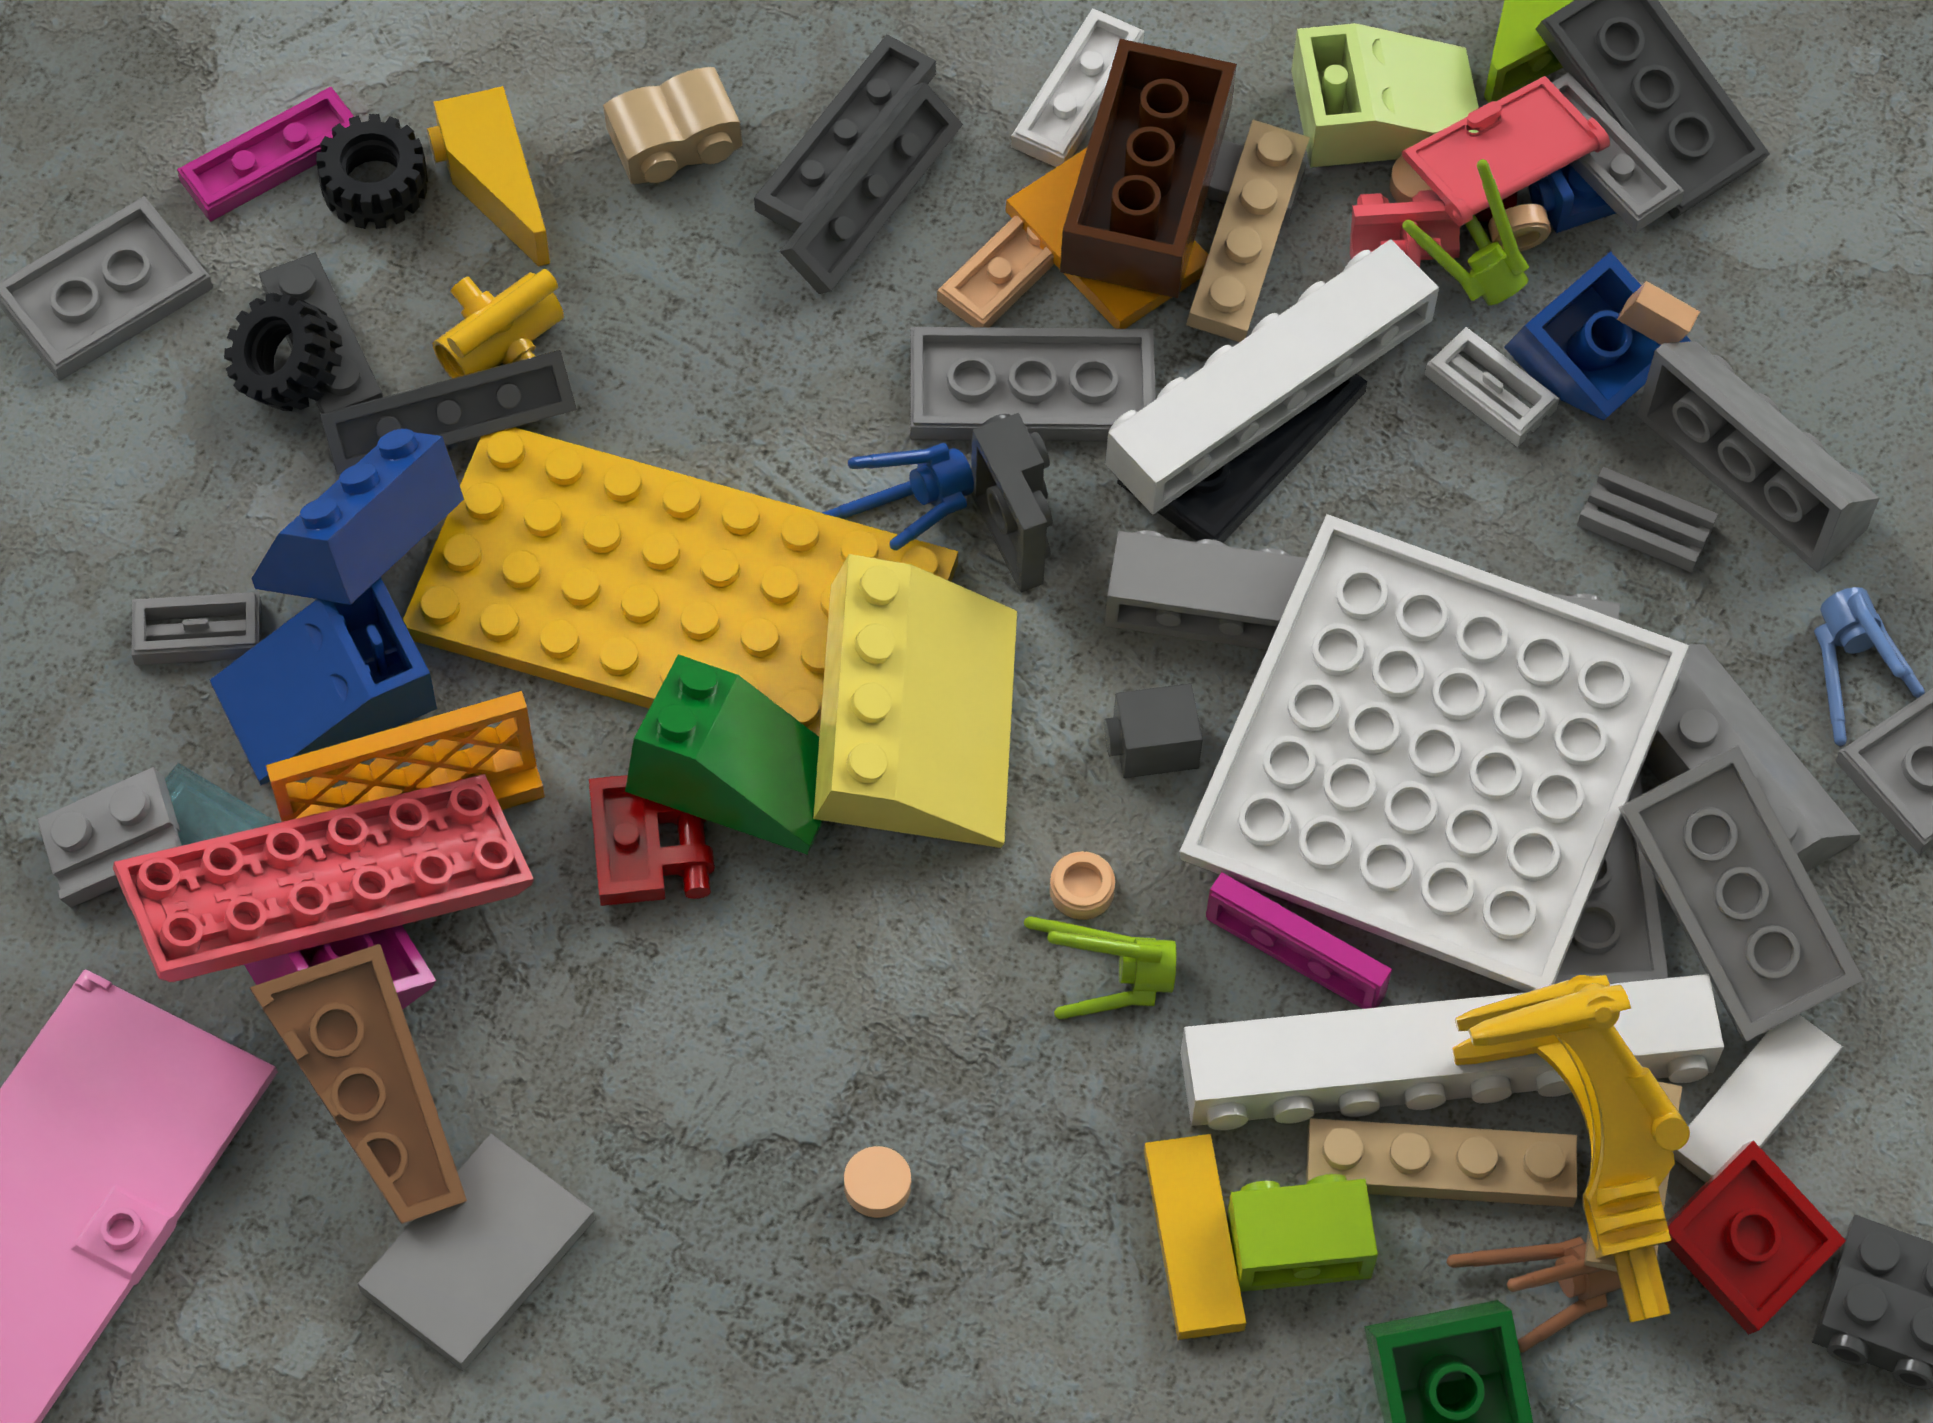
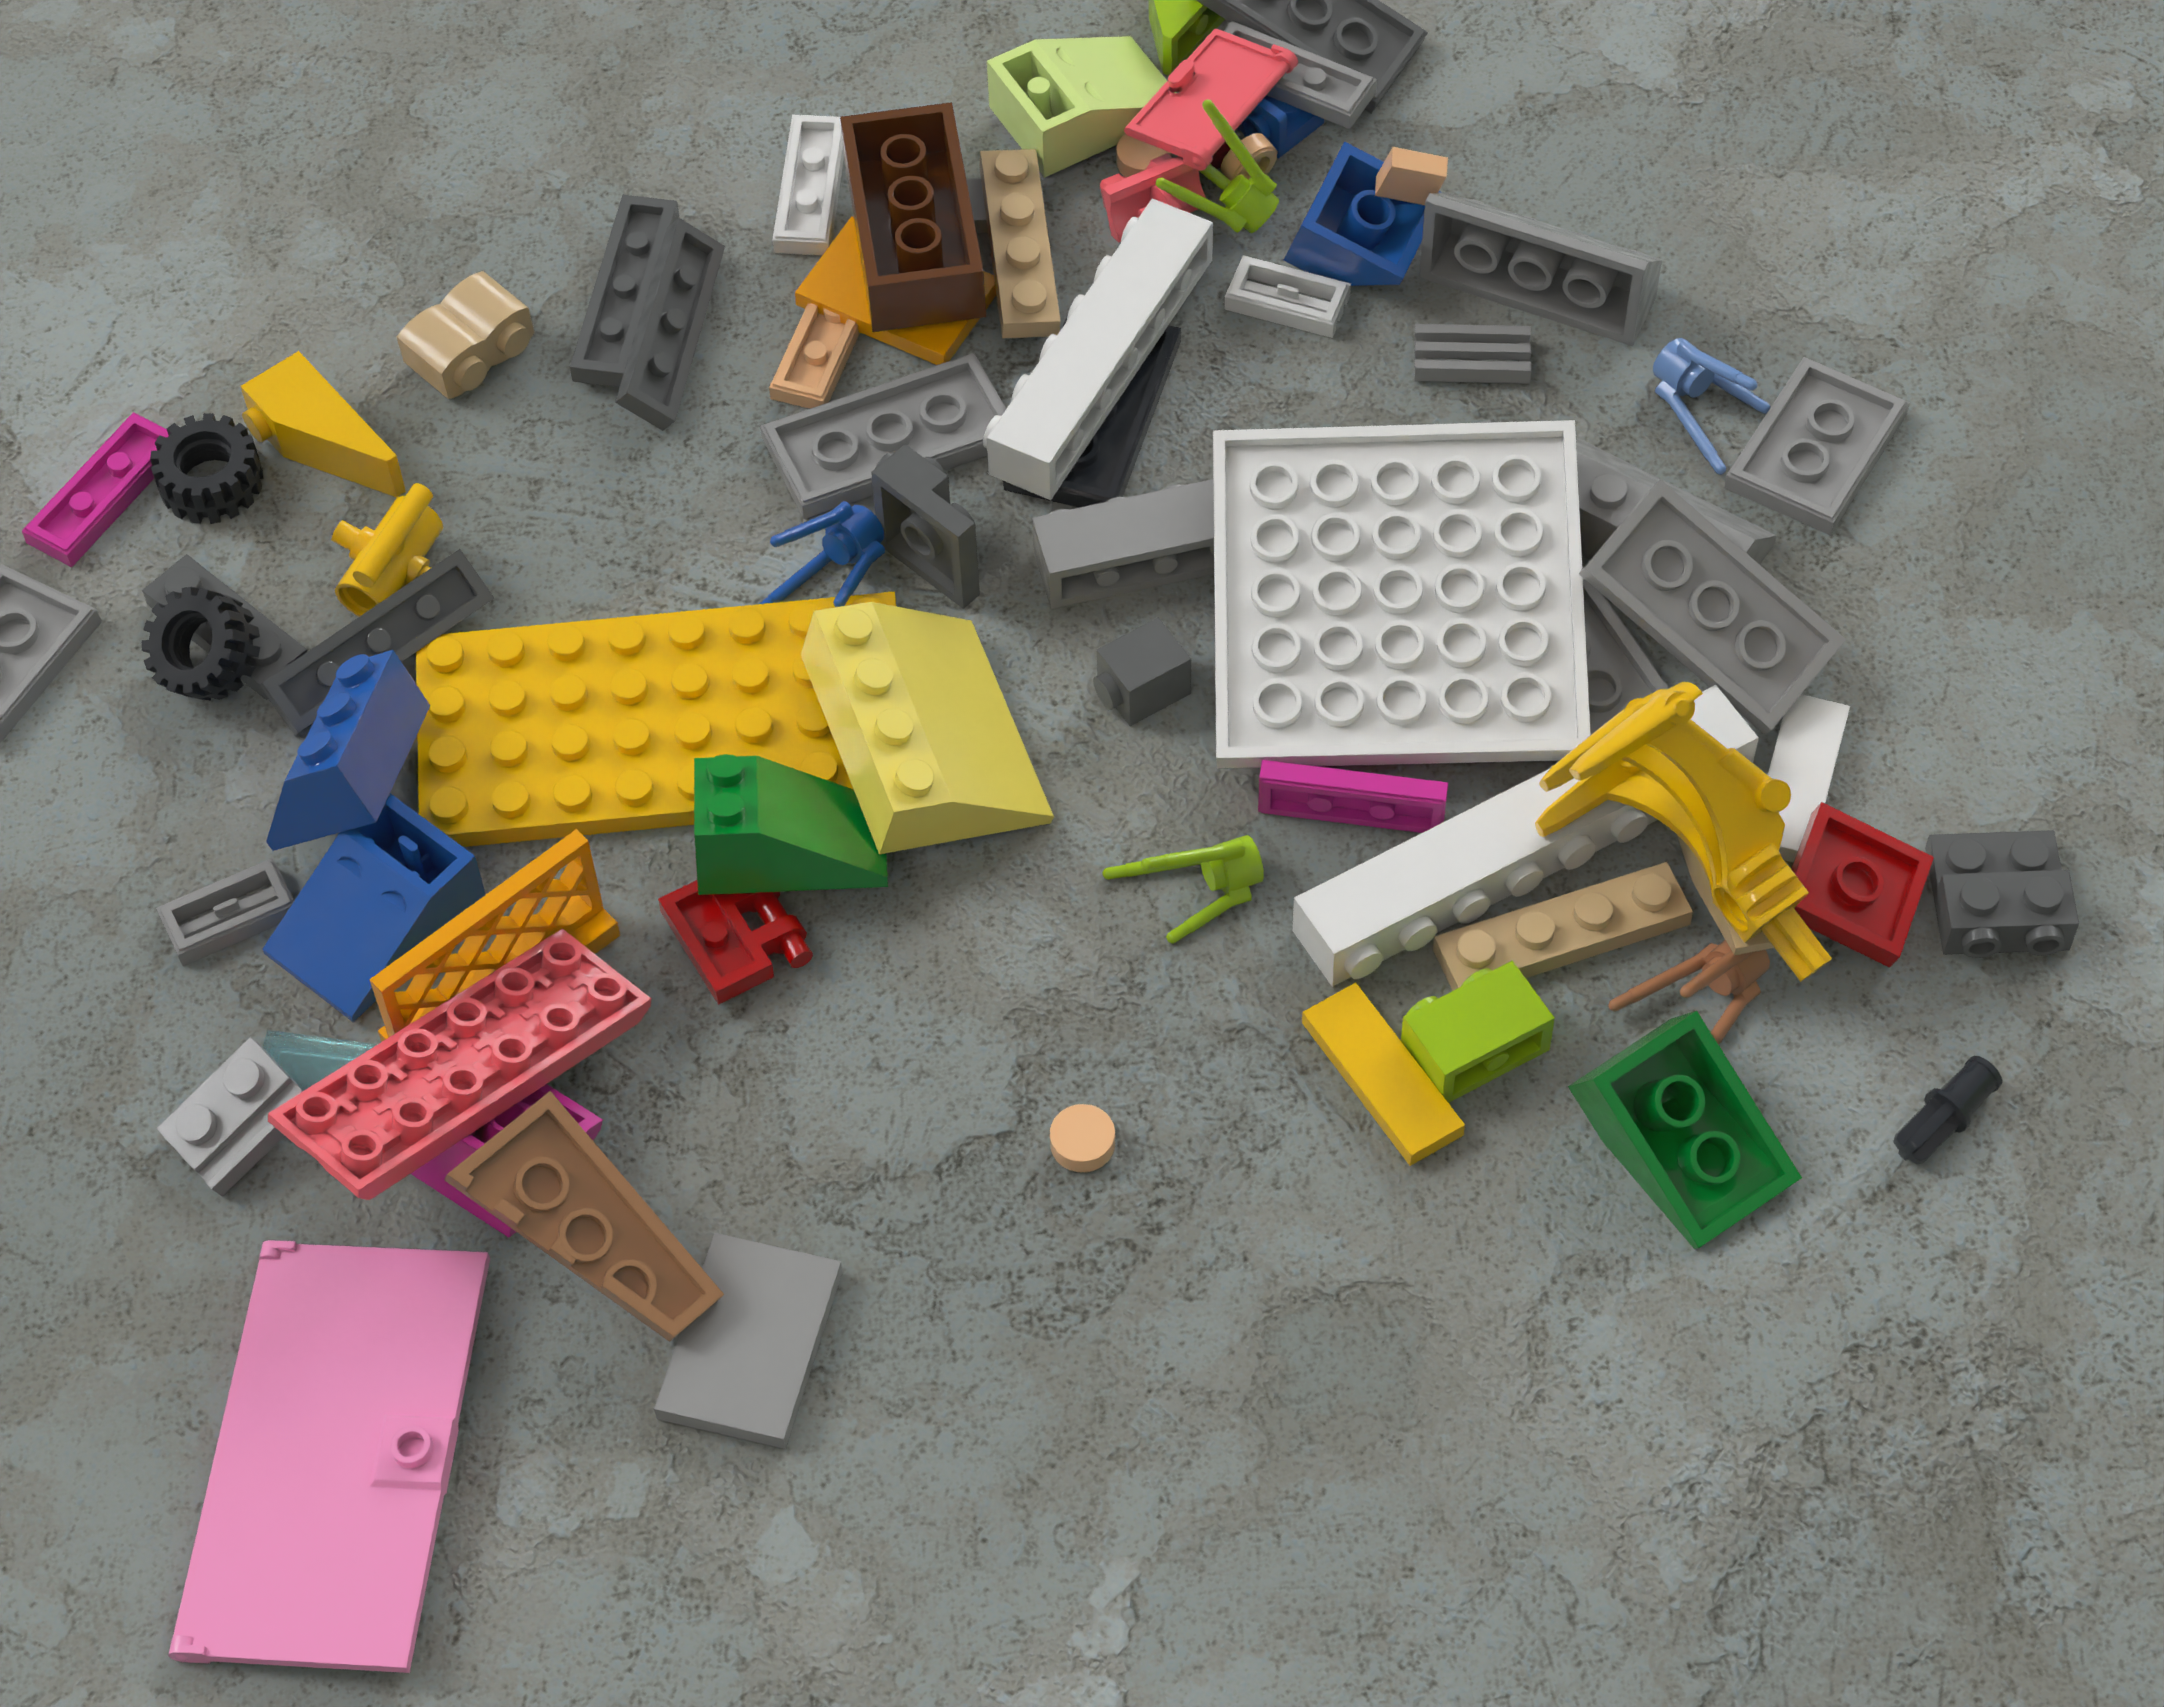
camera: 20 degrees left, 5 degrees down
(1082, 885) = (1139, 825): light nougat tile -> none

